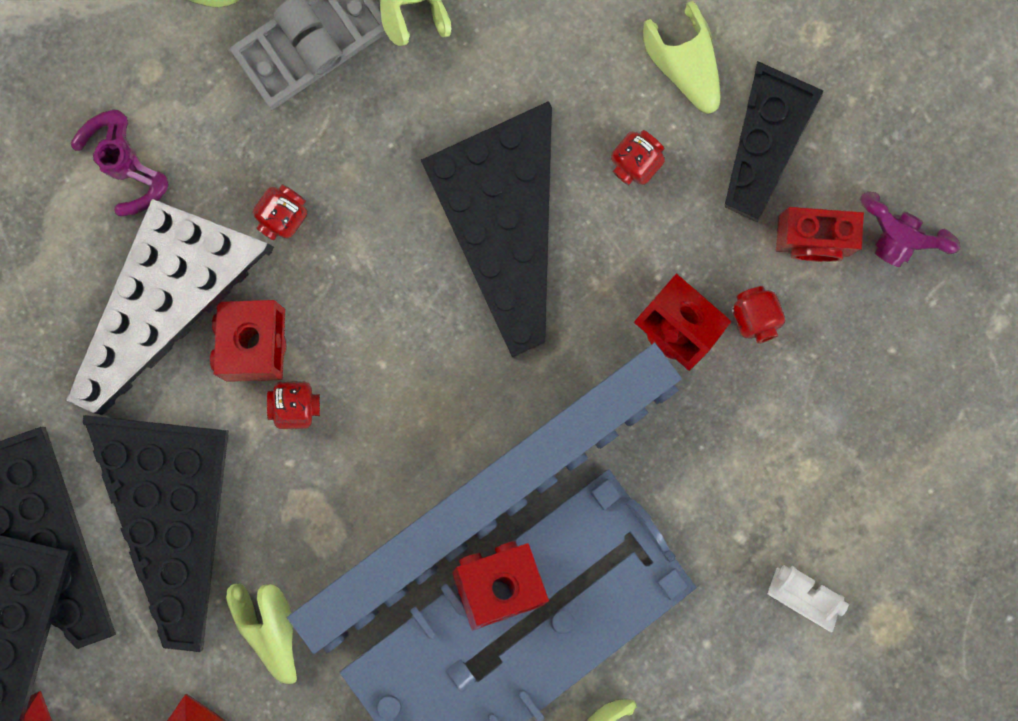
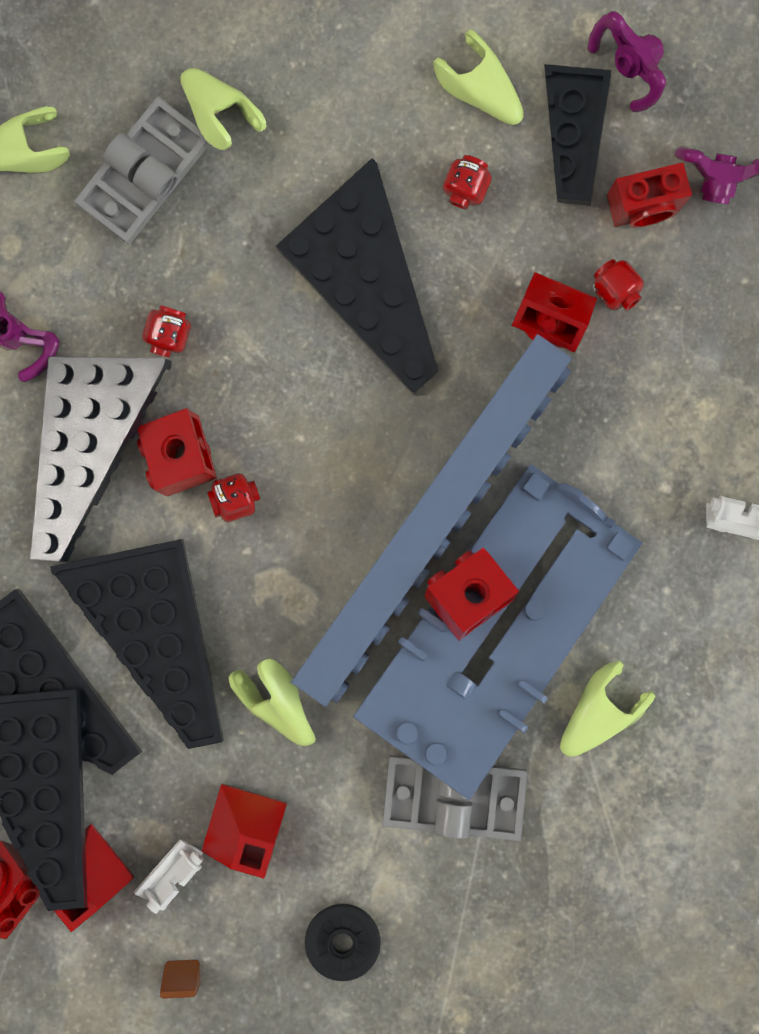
camera: 15 degrees left, 0 degrees up
(850, 84) = (634, 56): none -> magenta piece

